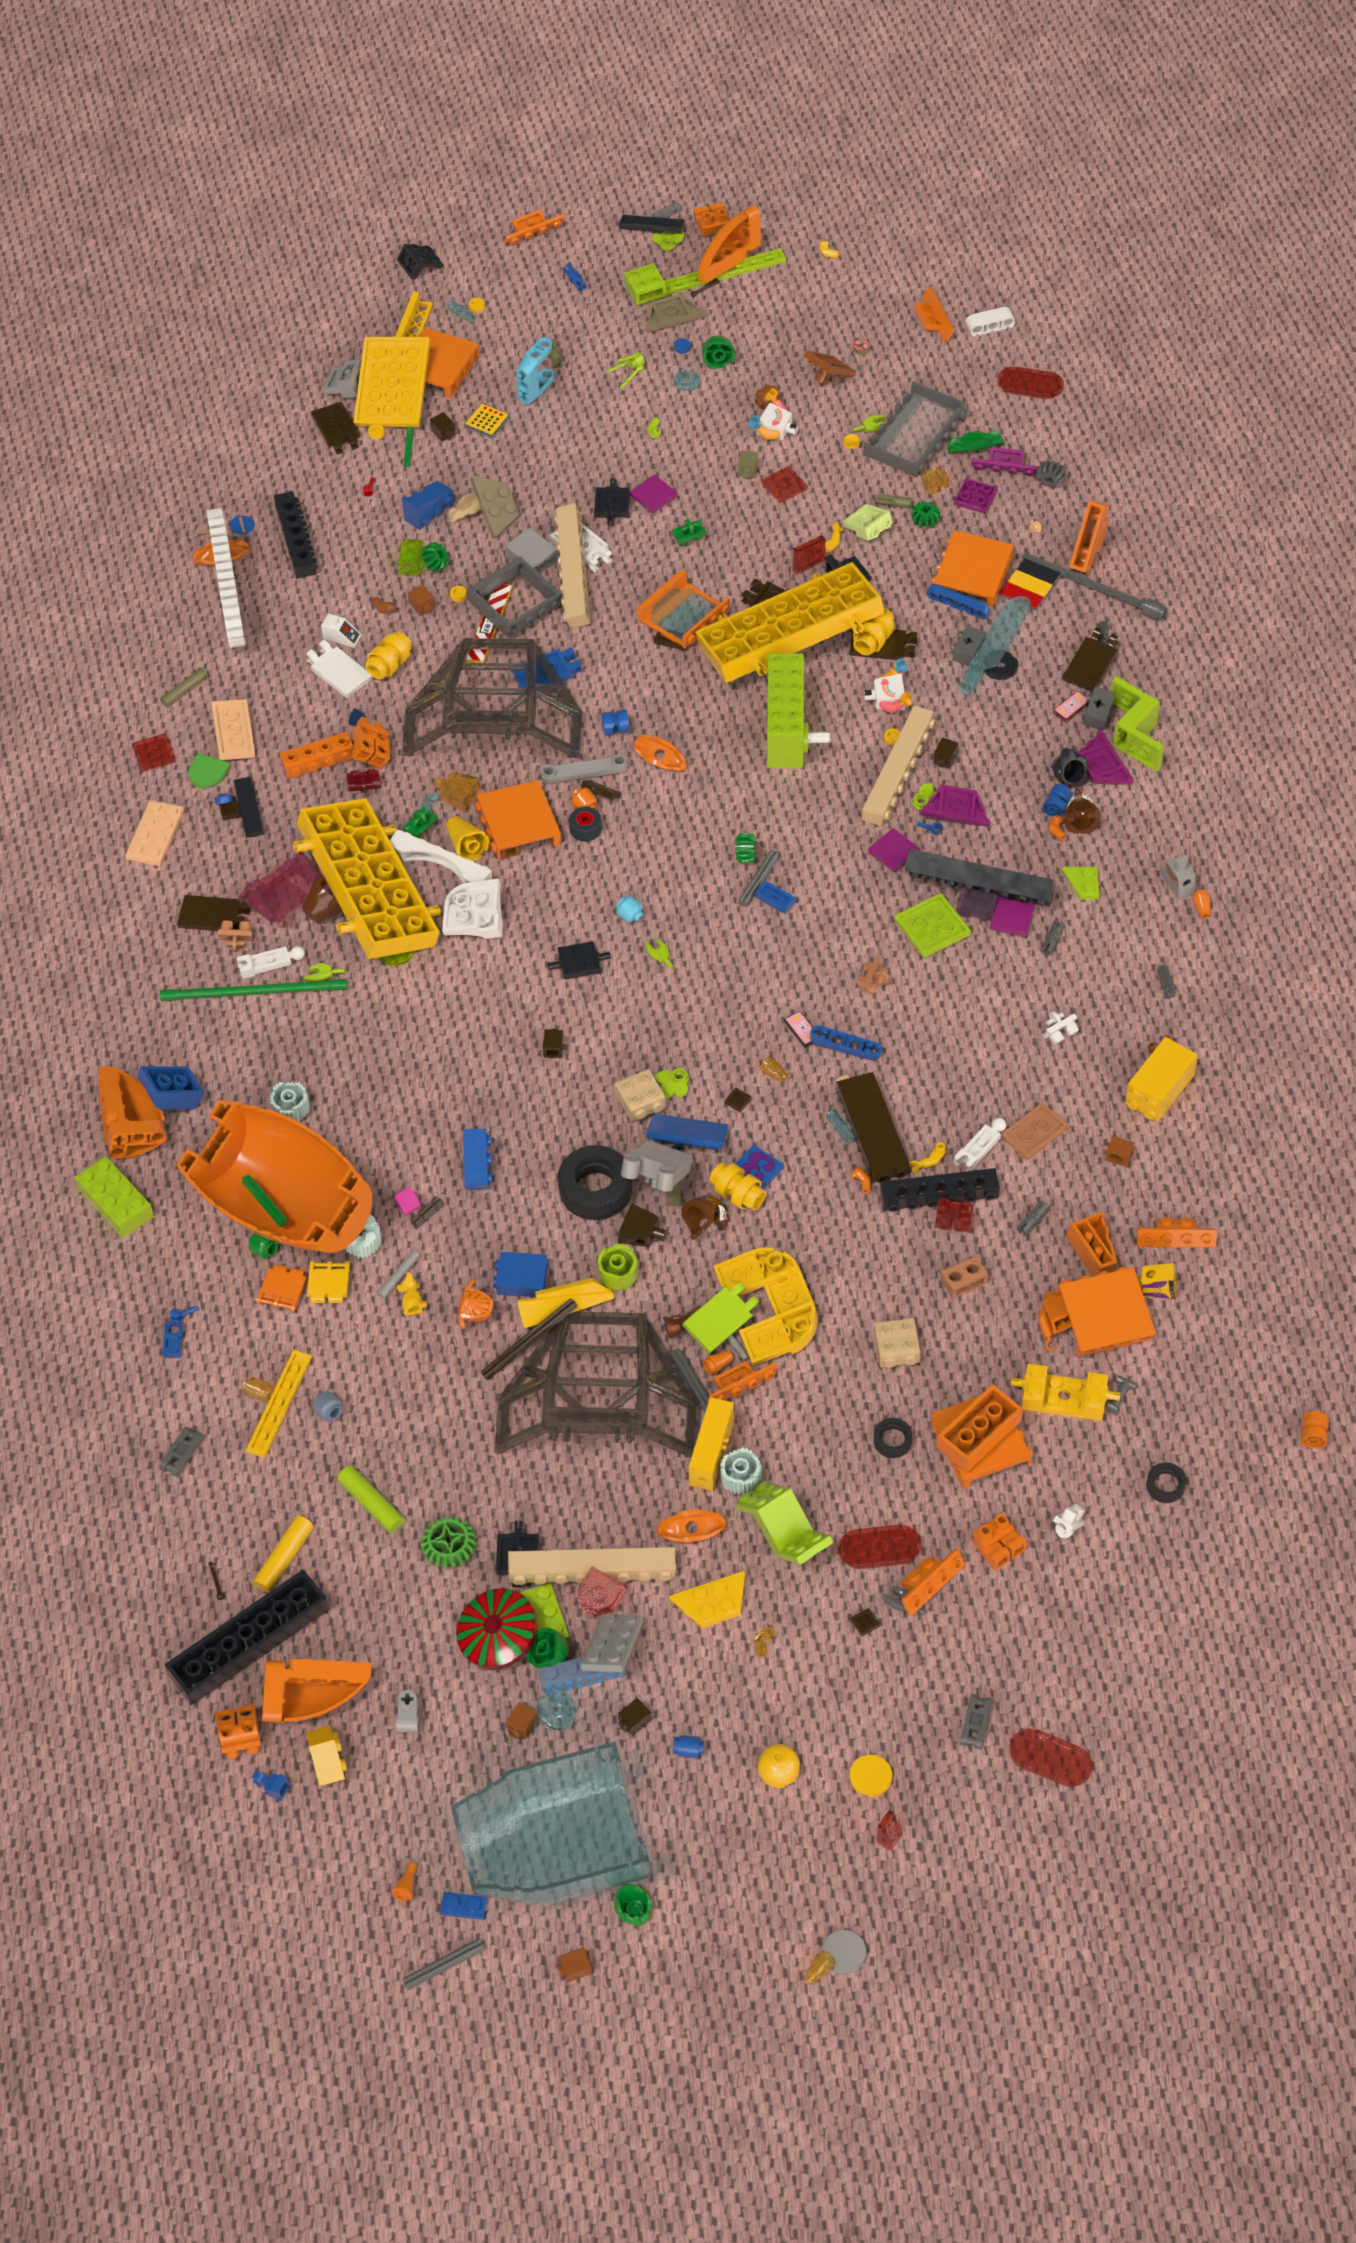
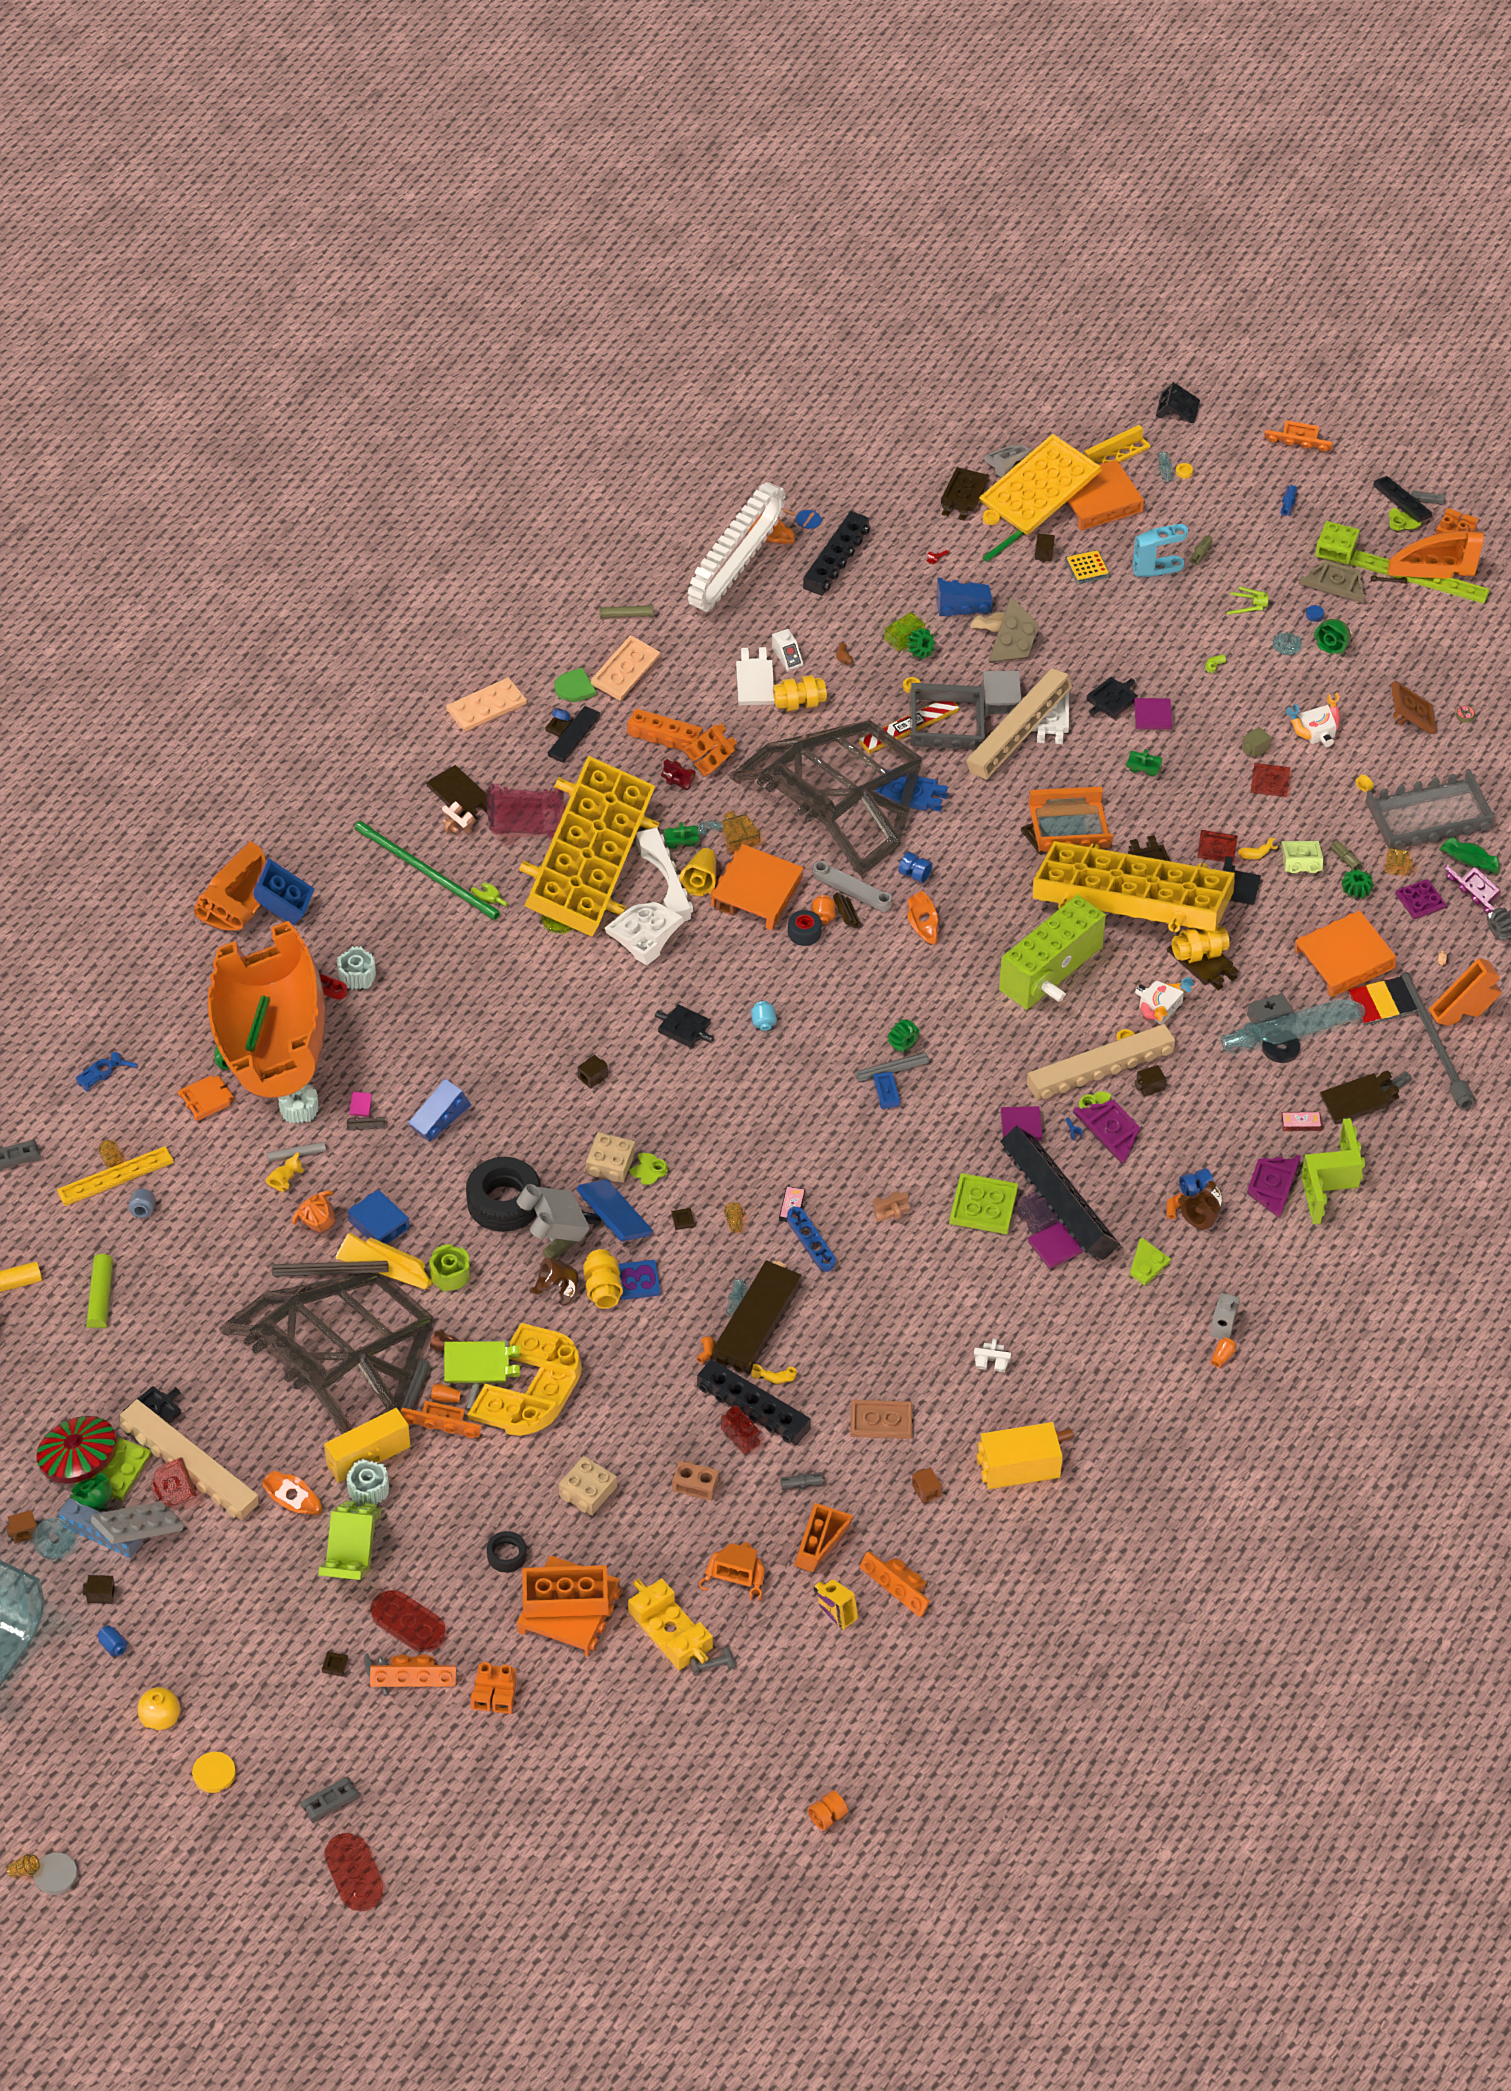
camera: 40 degrees right, 5 degrees down
(114, 1196) = (164, 942): lime brick -> none
(153, 752) = (551, 644): clear red tile -> none
(268, 960) = (459, 856): white plate -> none
(320, 903) = (536, 840): reddish brown piece -> none
(328, 1282) = (240, 1118): yellow plate -> none
(355, 716) = (729, 724): dark blue tile -> none
(421, 600) = (875, 669): dark orange brick -> none
(464, 1536) = (116, 1369): bright green gear -> none
(640, 1228) = (500, 1253): dark brown torso -> none
(660, 954) = (750, 1067): lime hand -> none
(712, 1601) = (248, 1558): yellow wing -> none
(760, 396) = (1341, 703): dark orange head -> none
(762, 1640) = (248, 1614): clear yellow arm -> none
(870, 424) = (1399, 779): lime hand -> none
(888, 1831) = (176, 1818): clear red slope -> none
(958, 601) = (1303, 971): blue beam -> none
(980, 1144) = (824, 1395): white plate -> none
(1052, 937) = (1069, 1285): dark grey pin -> none
(1069, 1521) = (561, 1717): white hips -> none
(1070, 768) = (1236, 1165): black piece -> none
(1098, 708) = (1308, 1137): dark grey brick -> none
(1106, 1311) = (766, 1589): orange panel -> none
(1162, 1496) = (672, 1767): black tyre -> none
(1166, 981) = (1122, 1388): dark grey axle -> none

